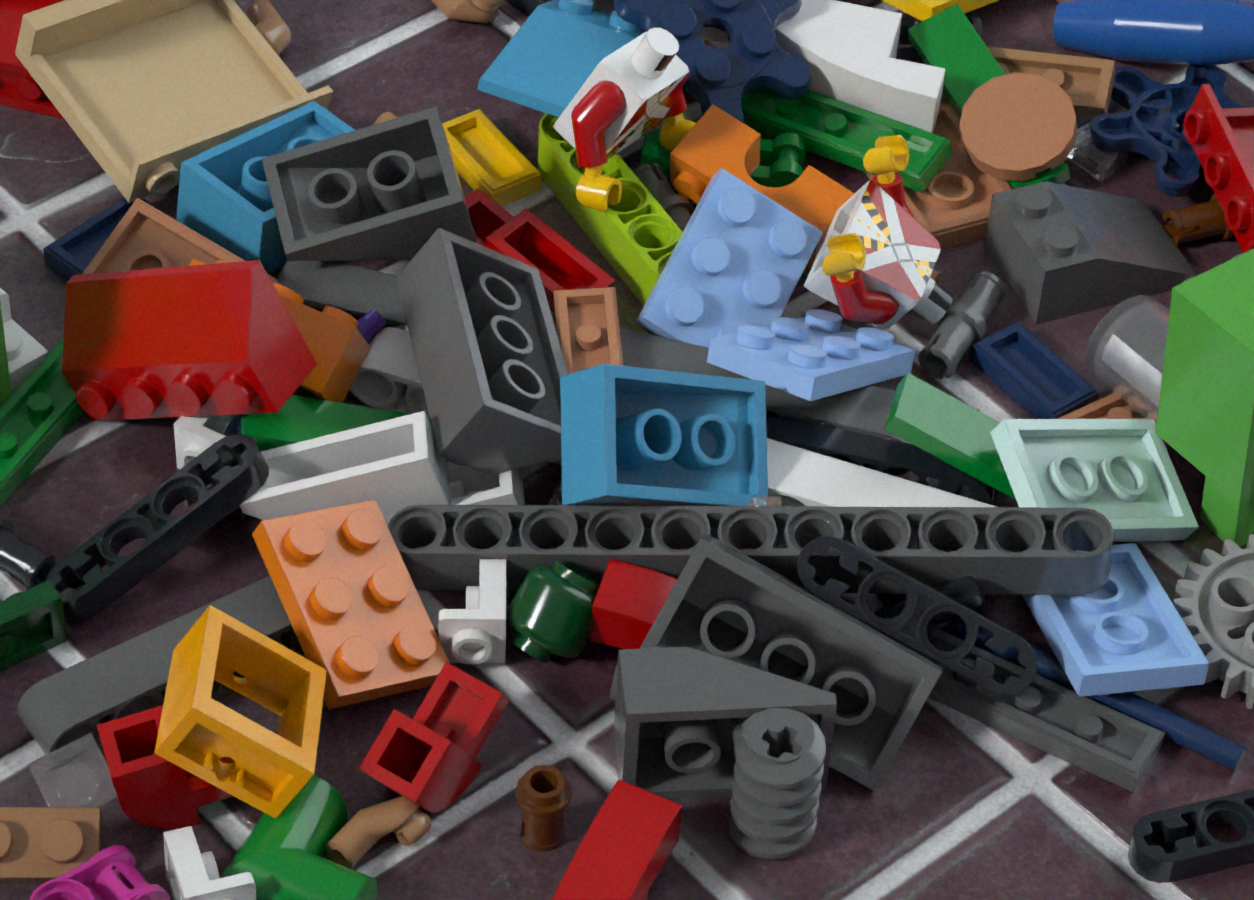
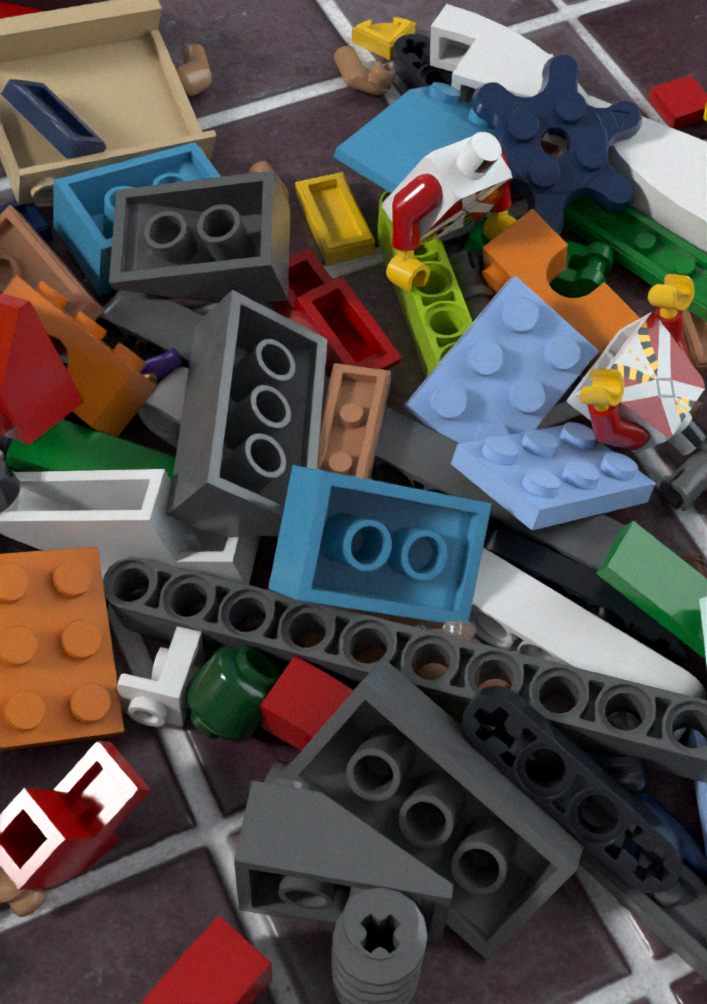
camera: 15 degrees right, 10 degrees up
(150, 100) = (53, 118): none -> dark blue tile
(543, 798) = (148, 912): reddish brown pin -> none

